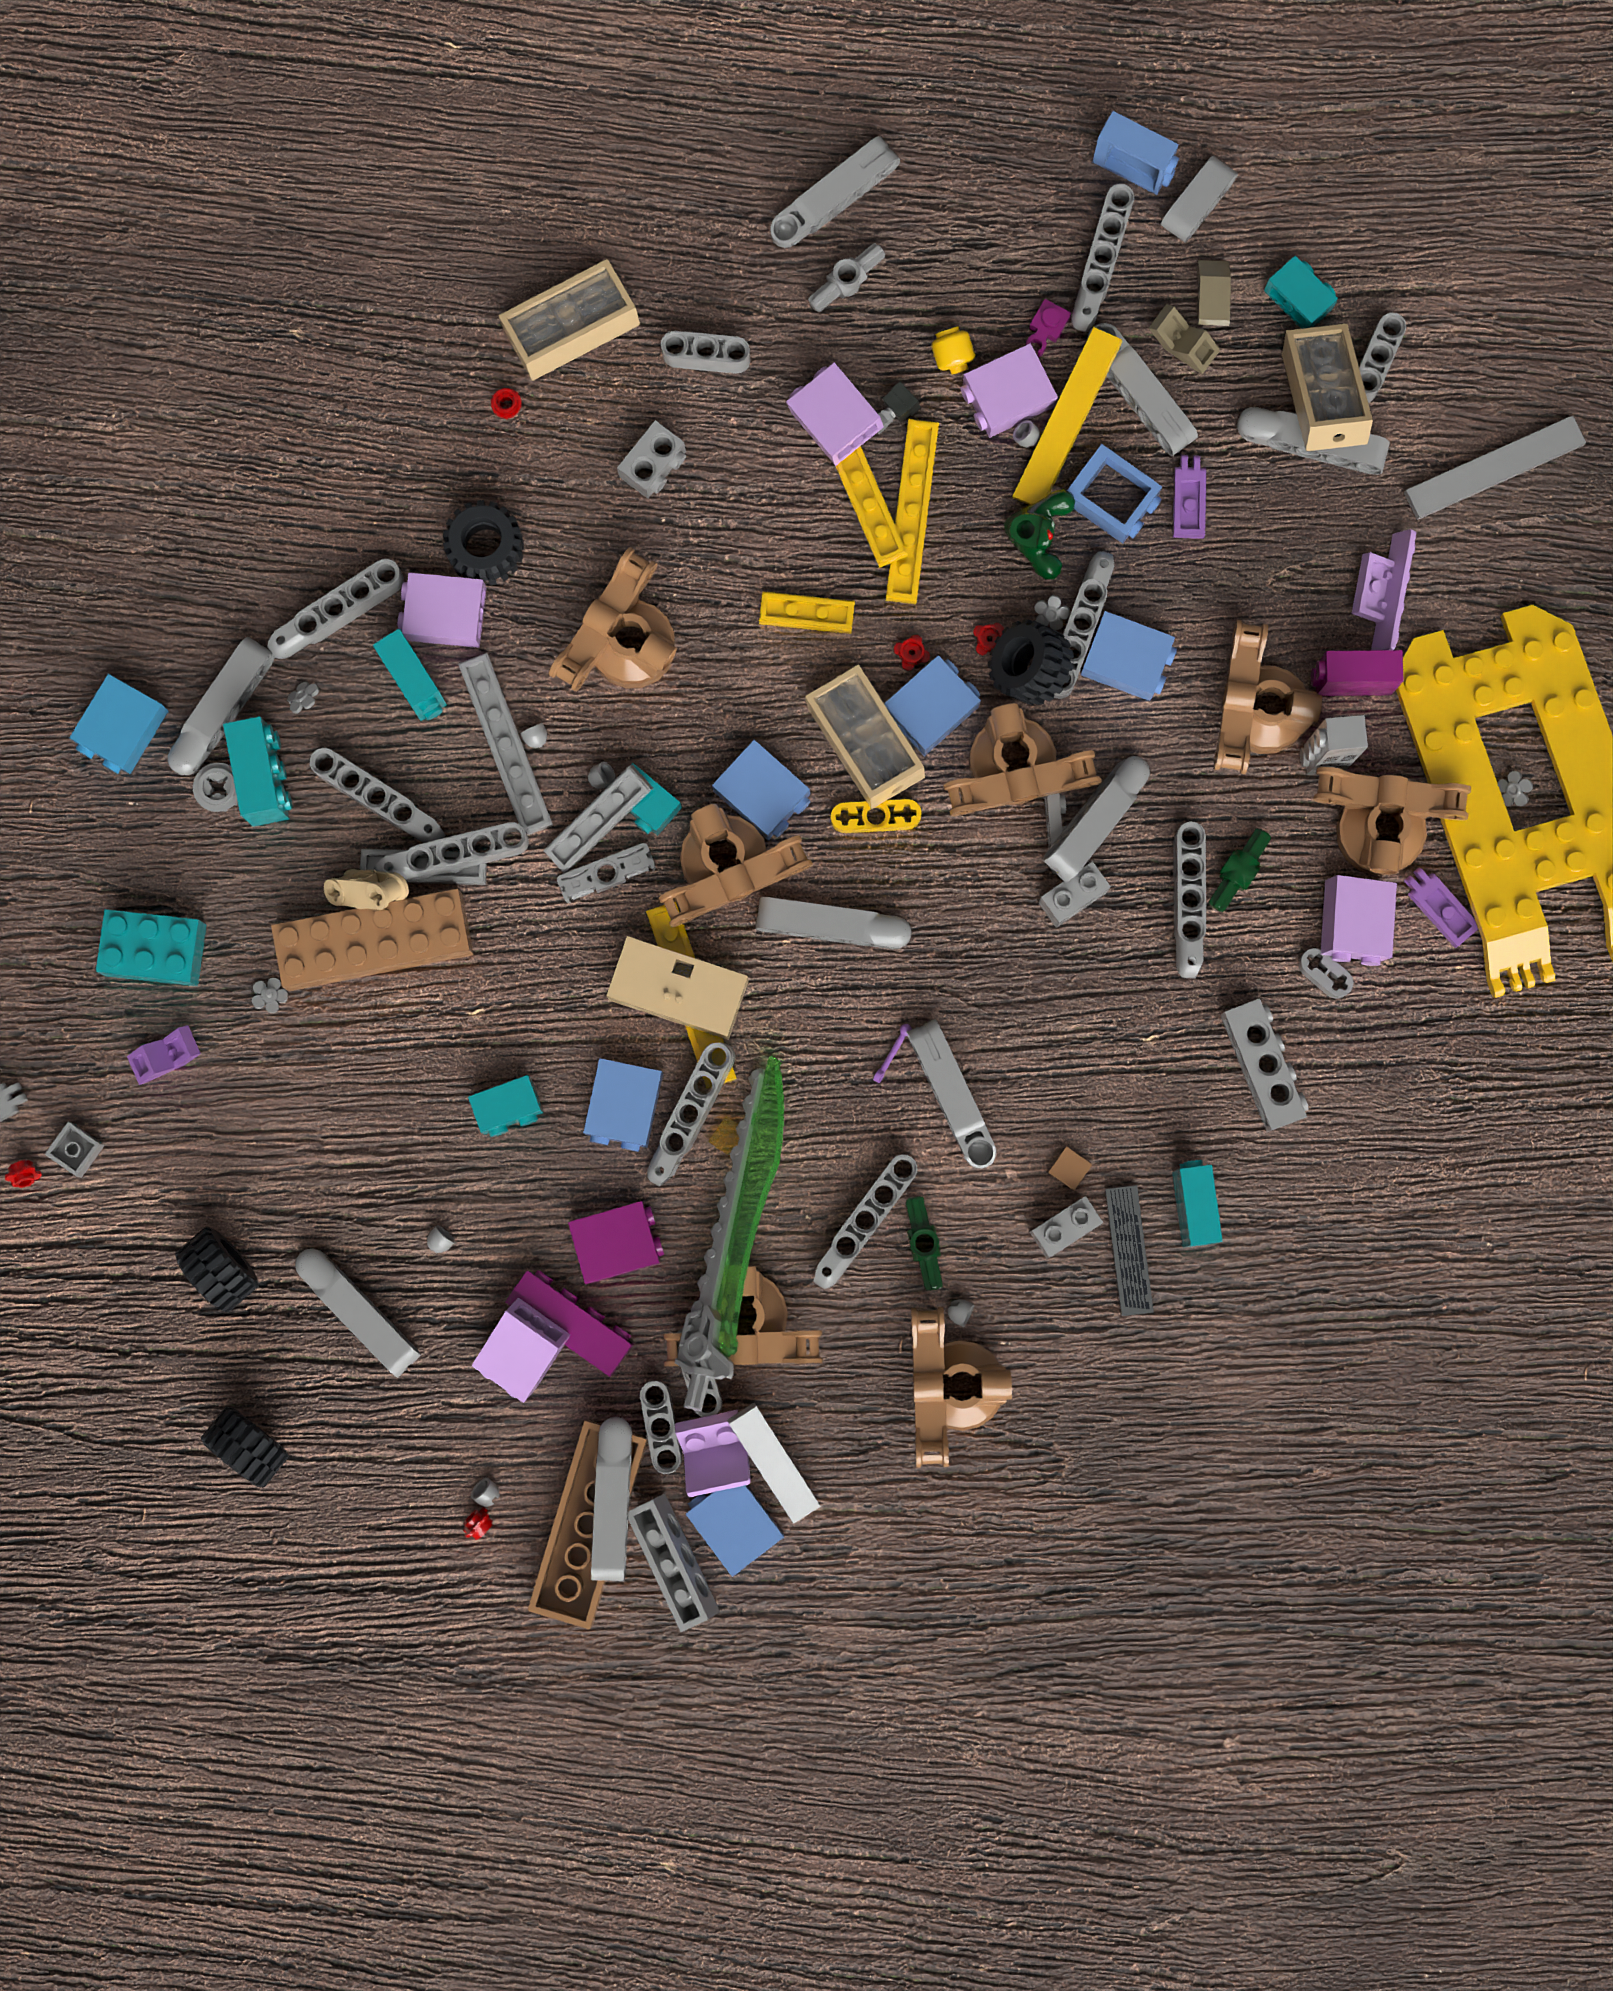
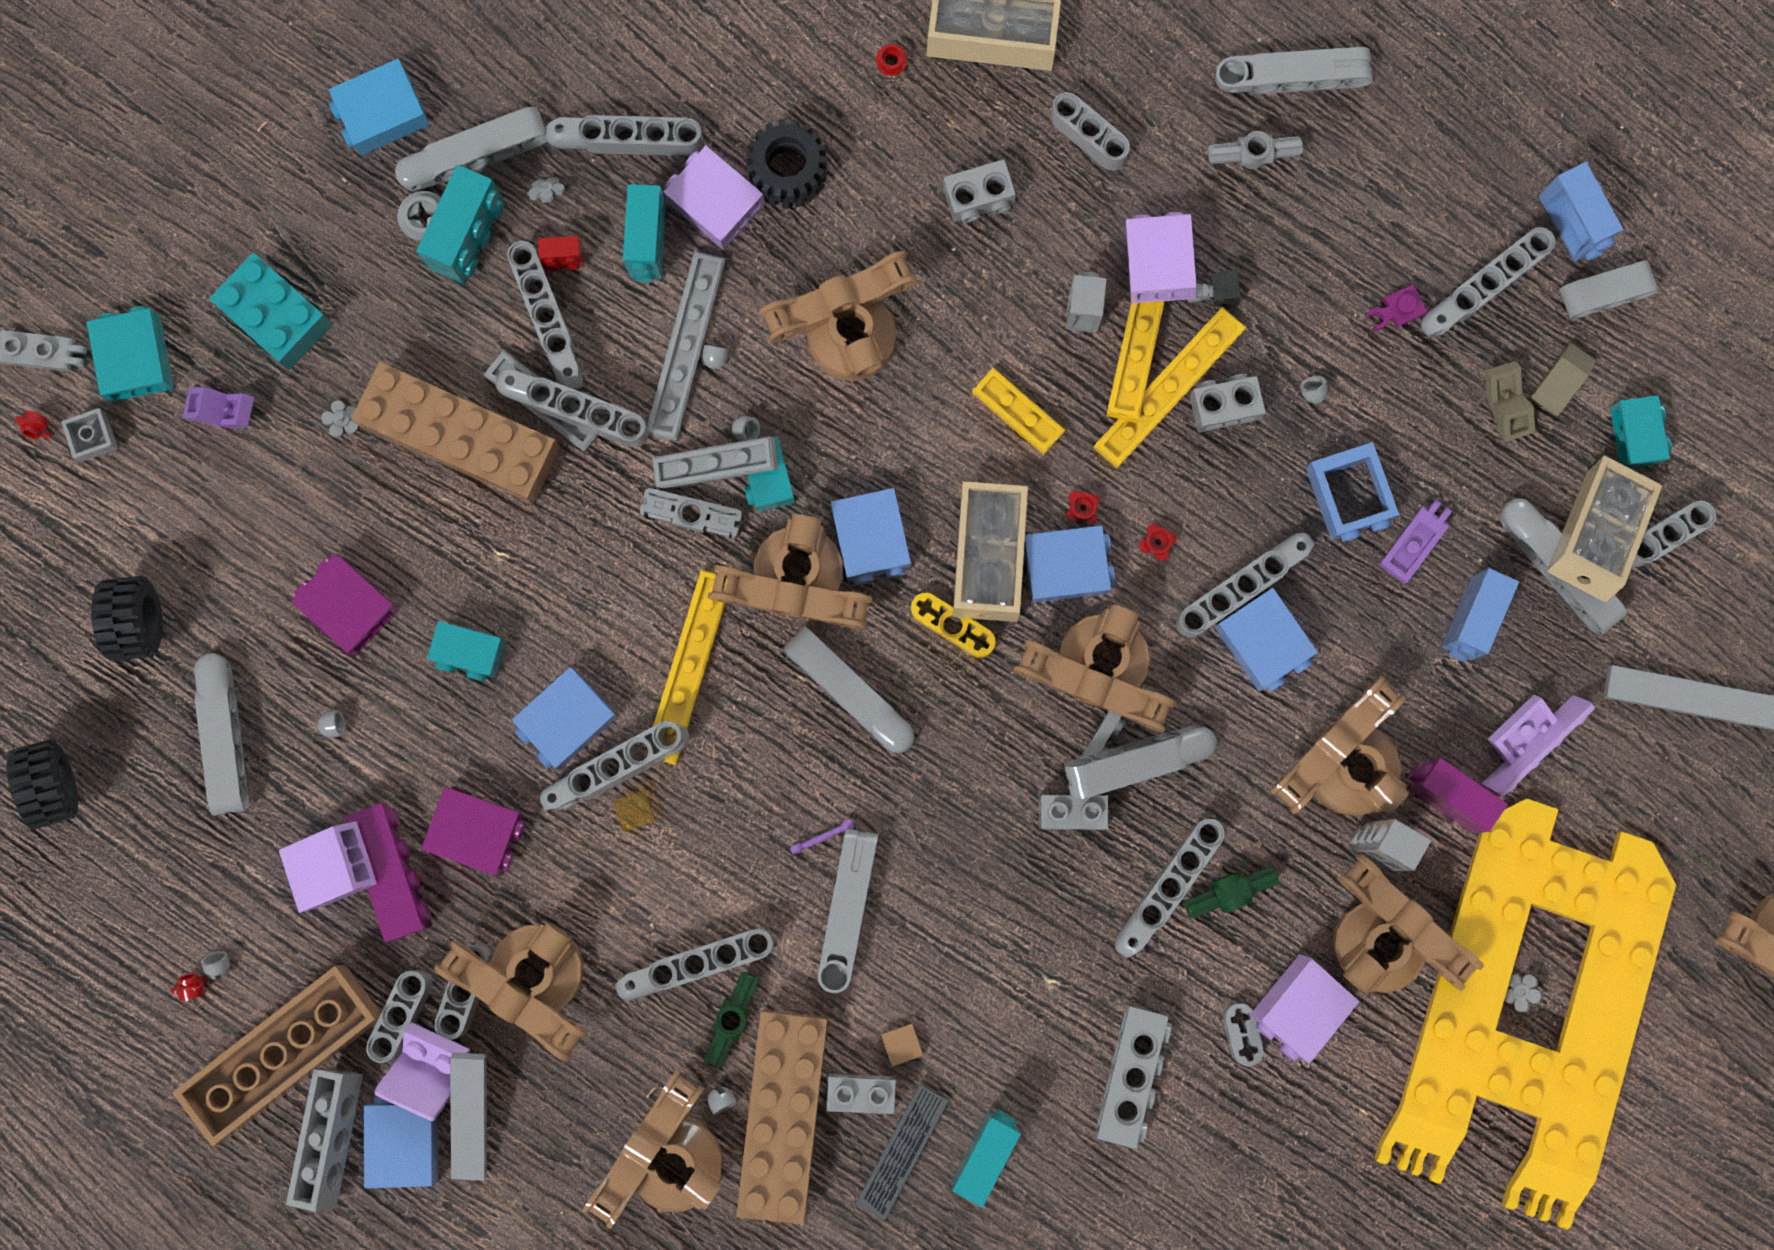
camera: 35 degrees right, 0 degrees up
(60, 1062) = (129, 354): none -> teal brick
(353, 738) = (561, 253): none -> red piece
(366, 889) = (478, 386): tan piece -> none
(381, 1138) = (344, 604): none -> magenta brick
(612, 1501) = (305, 1052): light grey piece -> none
(677, 988) = (677, 654): tan brick -> none
(712, 1326) = (495, 963): piece -> none
(800, 489) = (1085, 302): none -> light grey brick
(953, 350) = (1302, 274): yellow head -> none
(972, 496) = (1229, 411): none -> light grey brick
(1008, 391) = (1325, 341): lavender brick -> none
(1018, 1288) = (782, 1117): none -> medium nougat brick
(1033, 531) = (1261, 474): dark green head -> none
(1048, 668) = (1188, 602): black tyre -> none
(1052, 612) = (1227, 557): light grey plant -> none
(1068, 417) = (1359, 399): yellow tile -> none
(1148, 397) = (1441, 418): light grey piece -> none
(1278, 521) = (1479, 615): none -> medium blue brick
(1441, 907) = (1384, 1049): medium lavender hinge -> none

